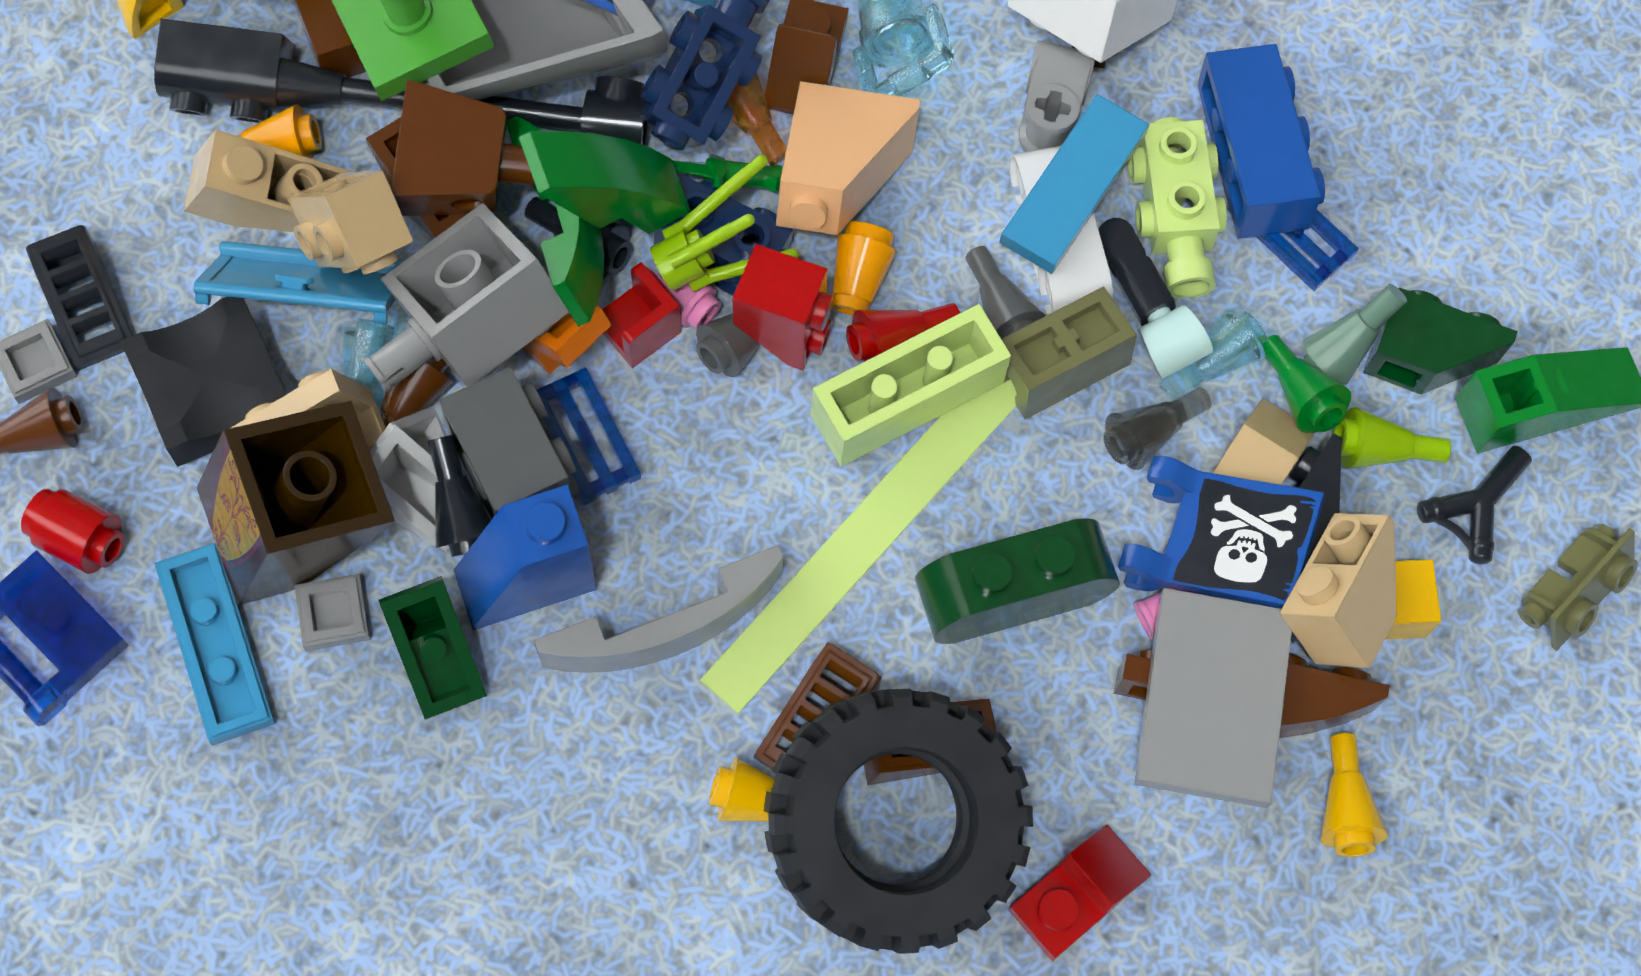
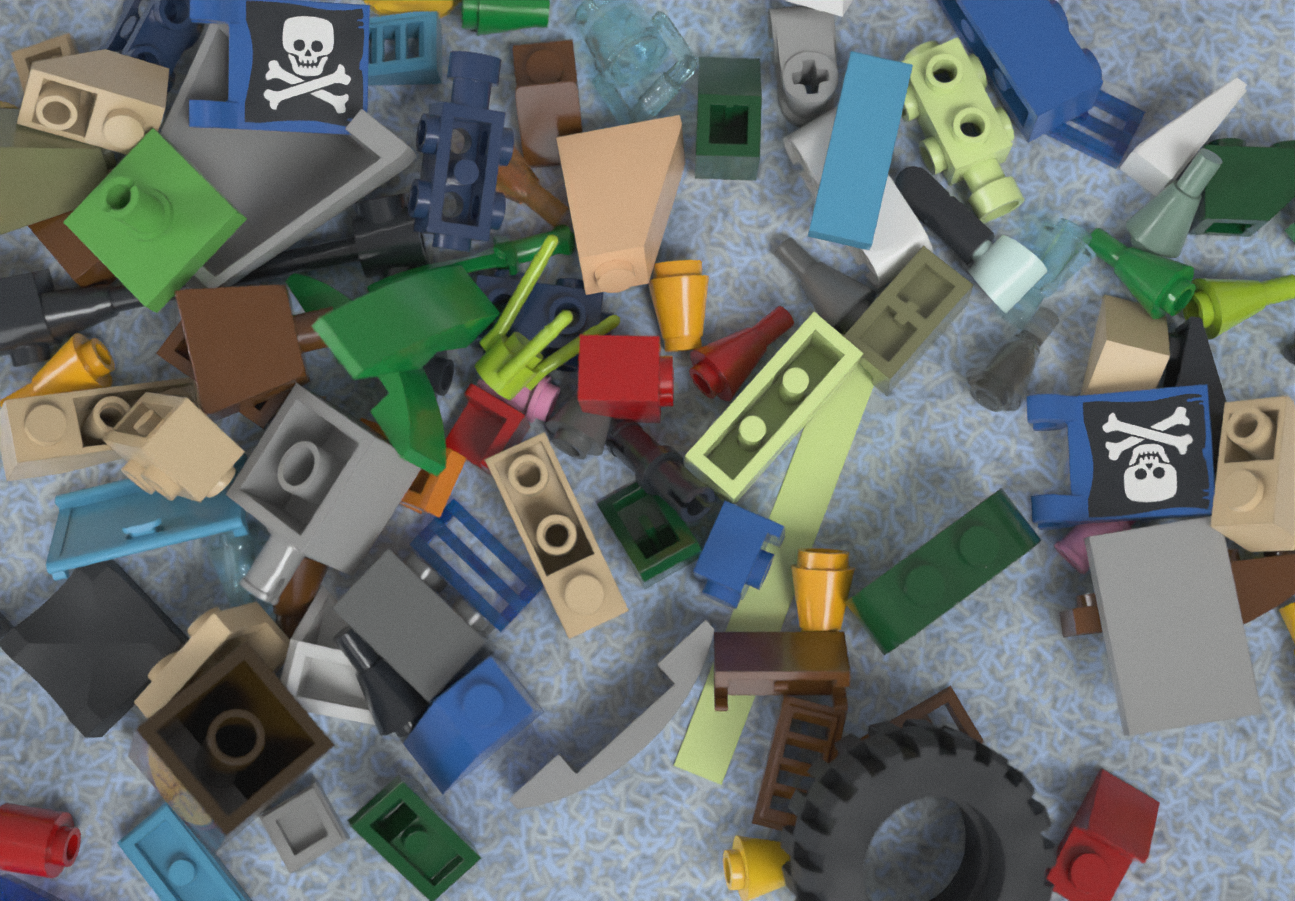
camera: 10 degrees left, 10 degrees up
(669, 428) = (556, 535): none -> tan slope
(757, 461) = (649, 534): none -> dark green slope
(786, 402) = (660, 471): none -> black pin
(830, 503) = (736, 554): none -> blue brick
(831, 613) = (781, 665): none -> reddish brown hinge
(894, 564) = (821, 587): none -> light orange cone
(963, 123) = (728, 118): none -> dark green slope
(1360, 282) = (1168, 151): none -> white slope

